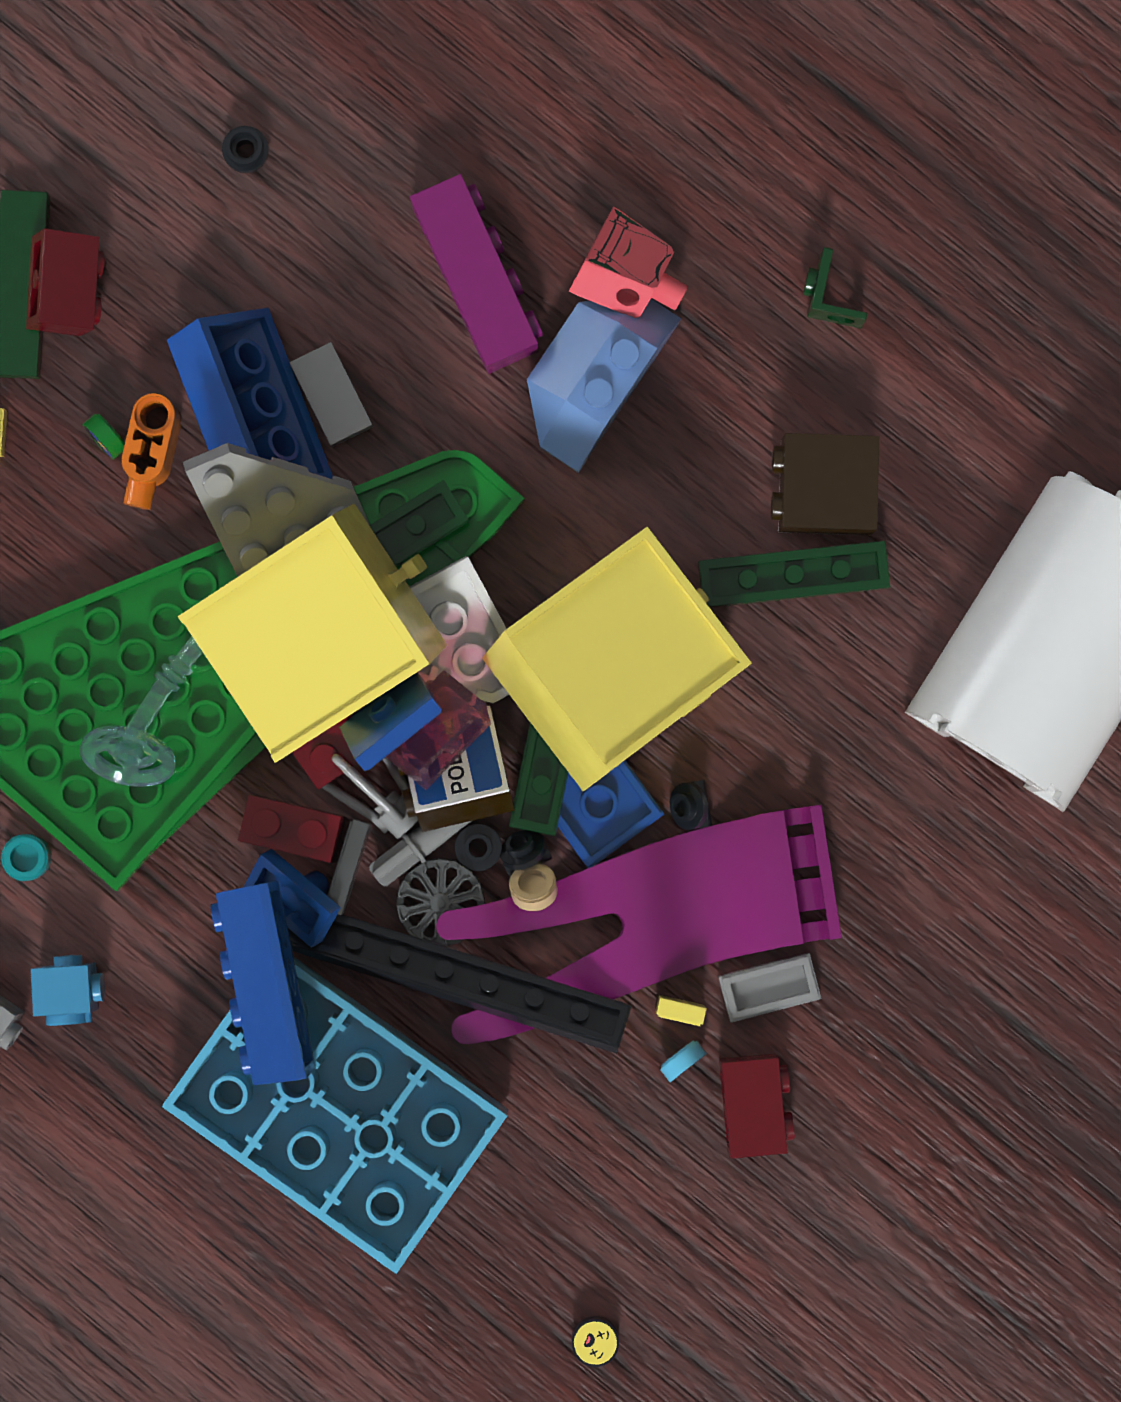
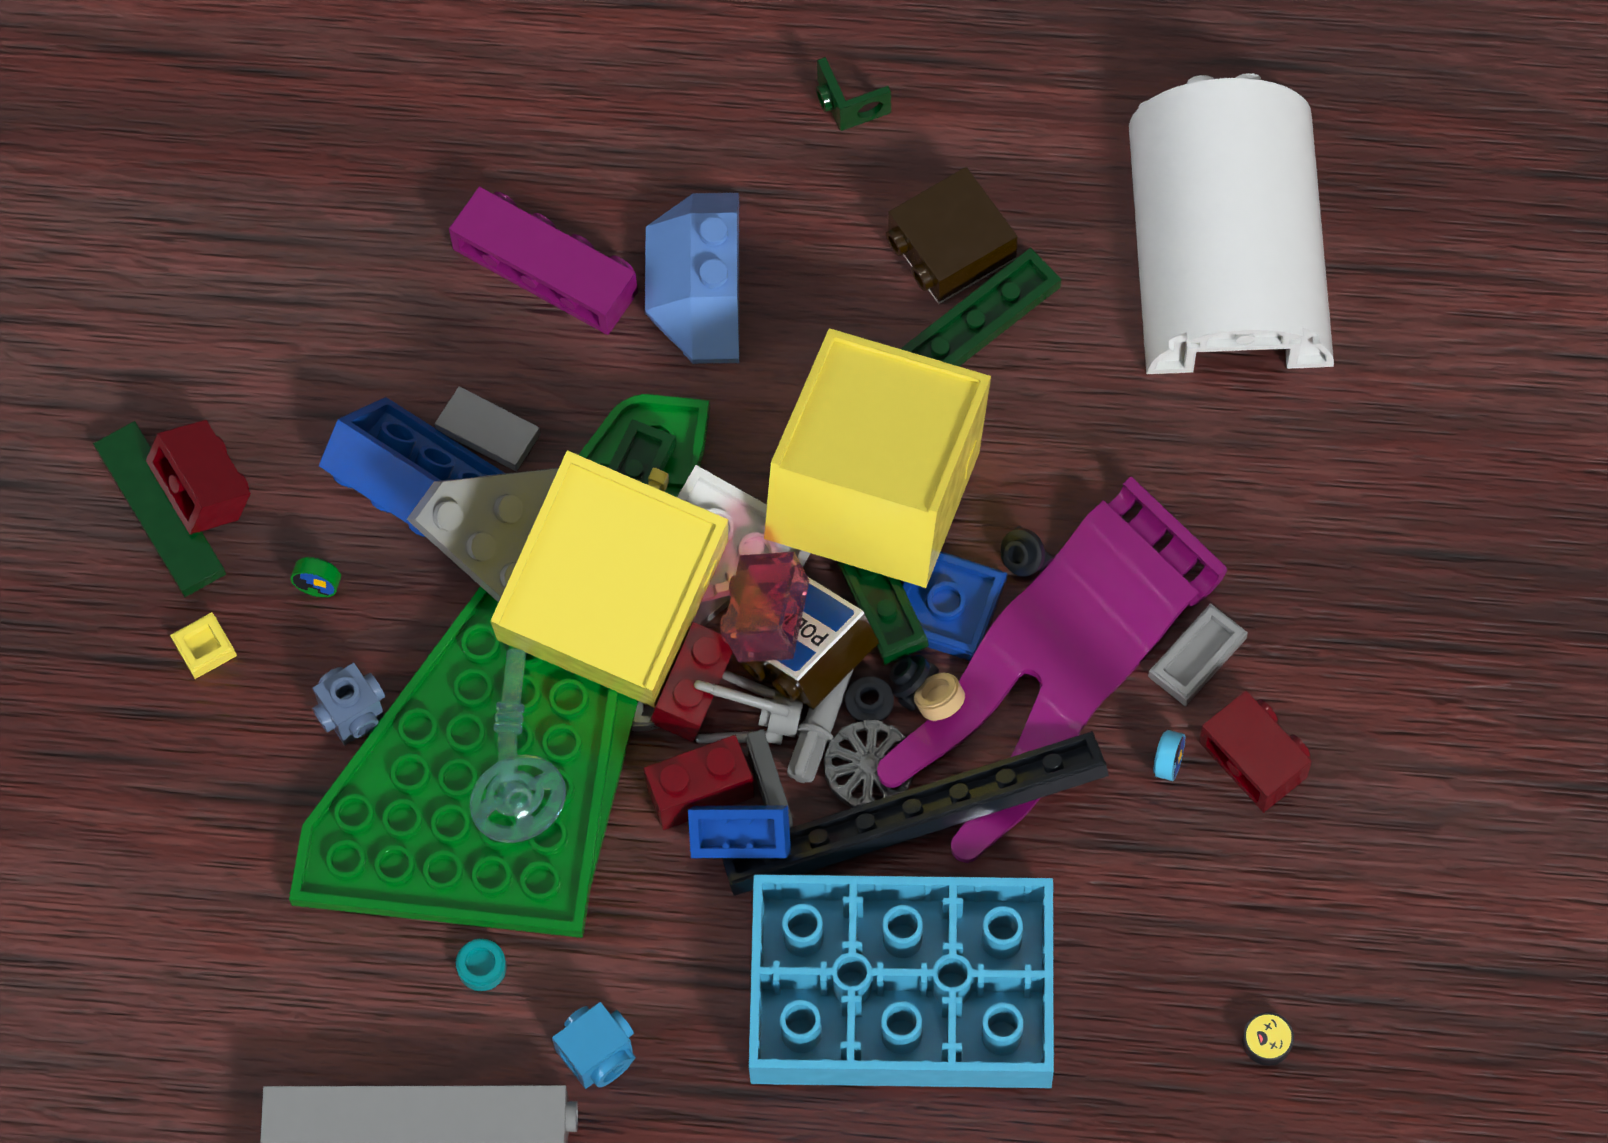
camera: 30 degrees left, 20 degrees down
(73, 575) = (348, 703): none -> sand blue brick
(142, 486) = (372, 591): orange piece -> none
(238, 137) = (279, 276): black plate -> none
(264, 984) = (767, 888): blue slope -> none
(389, 721) = (724, 606): plate -> none
(627, 268) = (669, 173): coral torso -> none
(680, 1010) = (1136, 715): light yellow tile -> none

